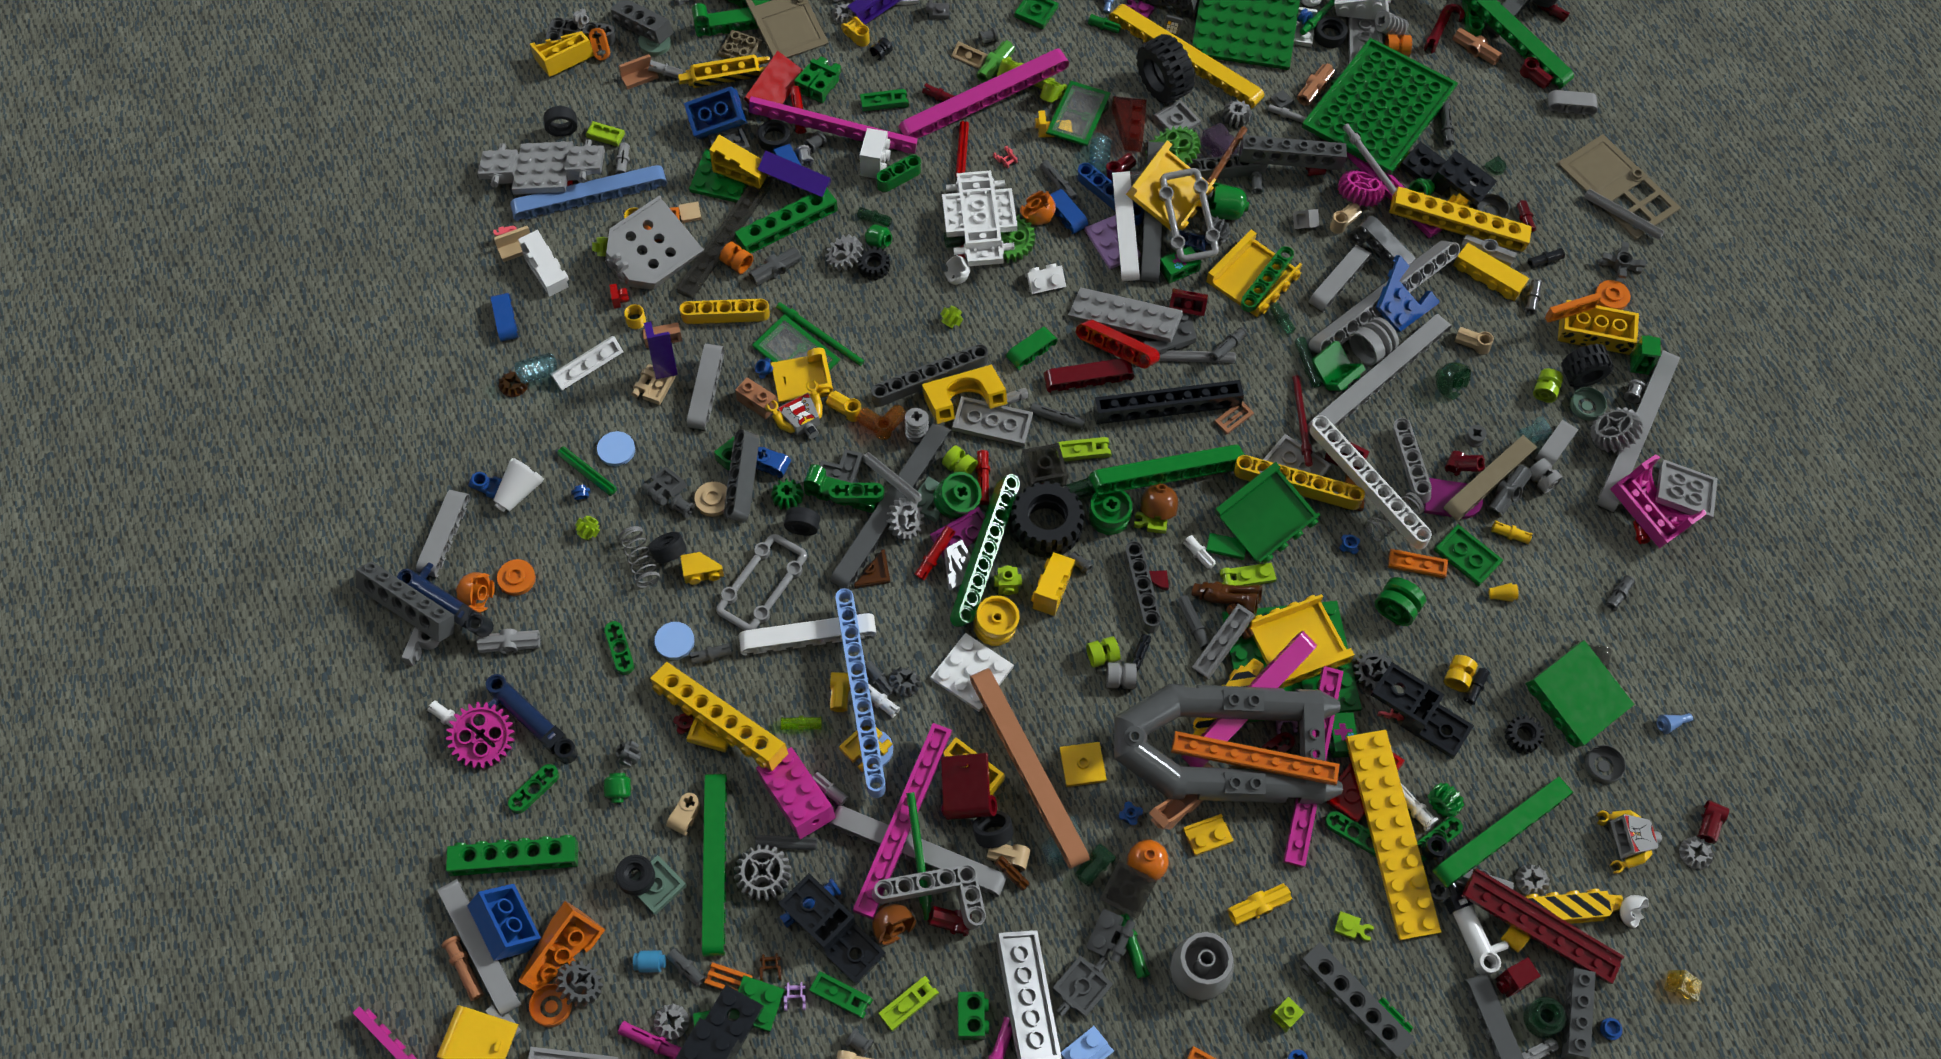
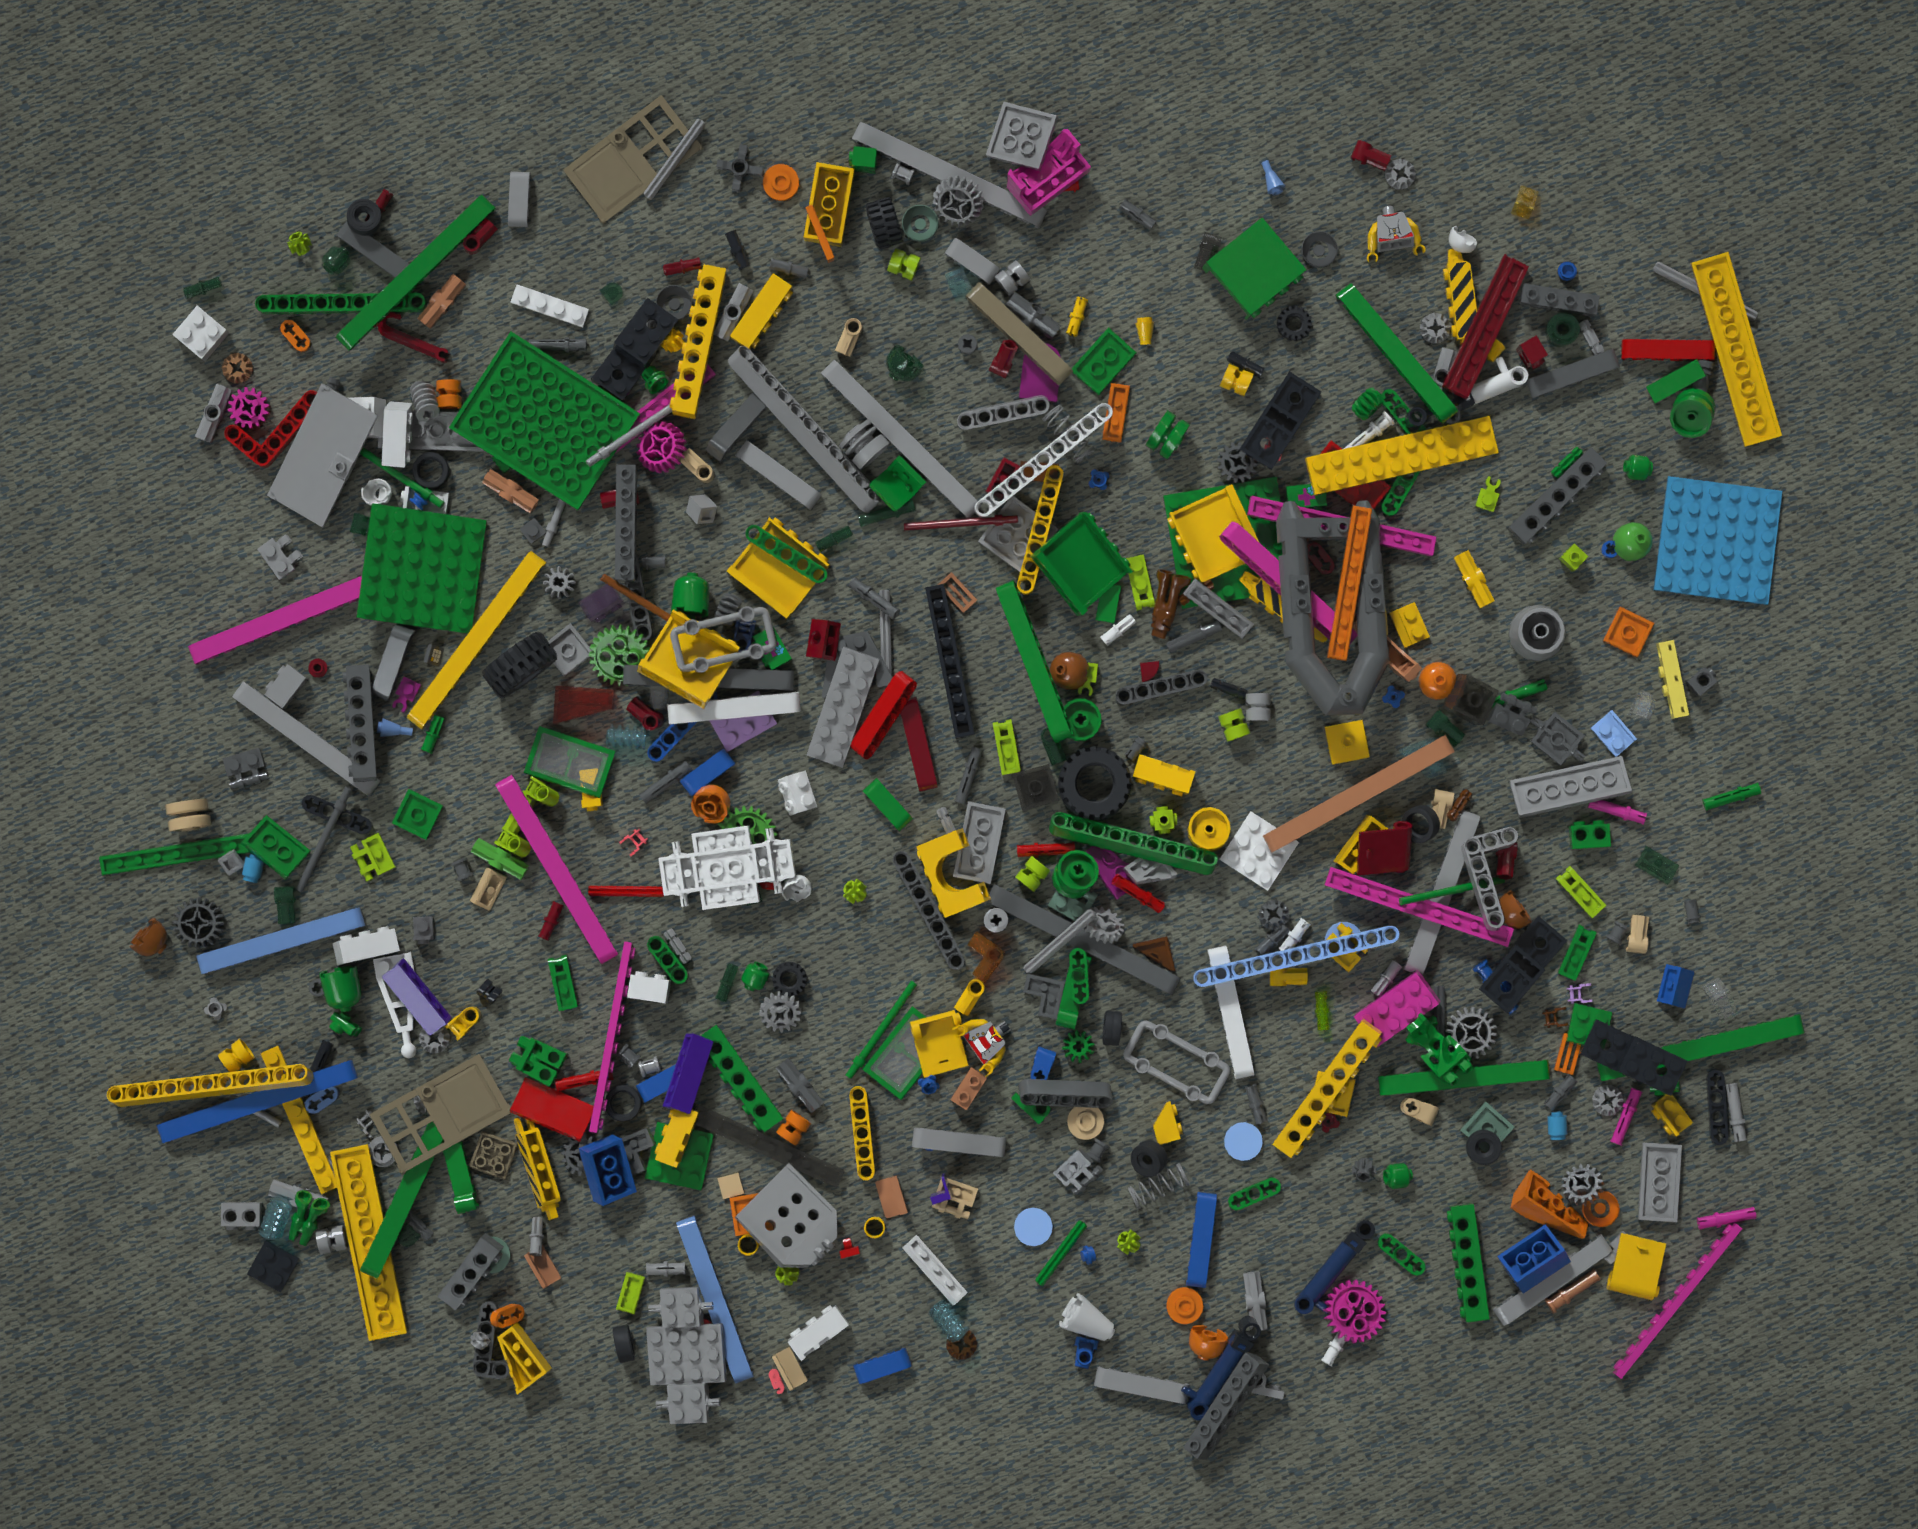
camera: 85 degrees left, 25 degrees up
(579, 593) = (1201, 1239): none -> blue beam
(732, 836) = (1424, 1034): none -> green hips
(910, 183) = (677, 946): none -> light grey axle
(1397, 303) = (817, 413): blue wing -> none
(1480, 121) = (549, 306): none -> white plate

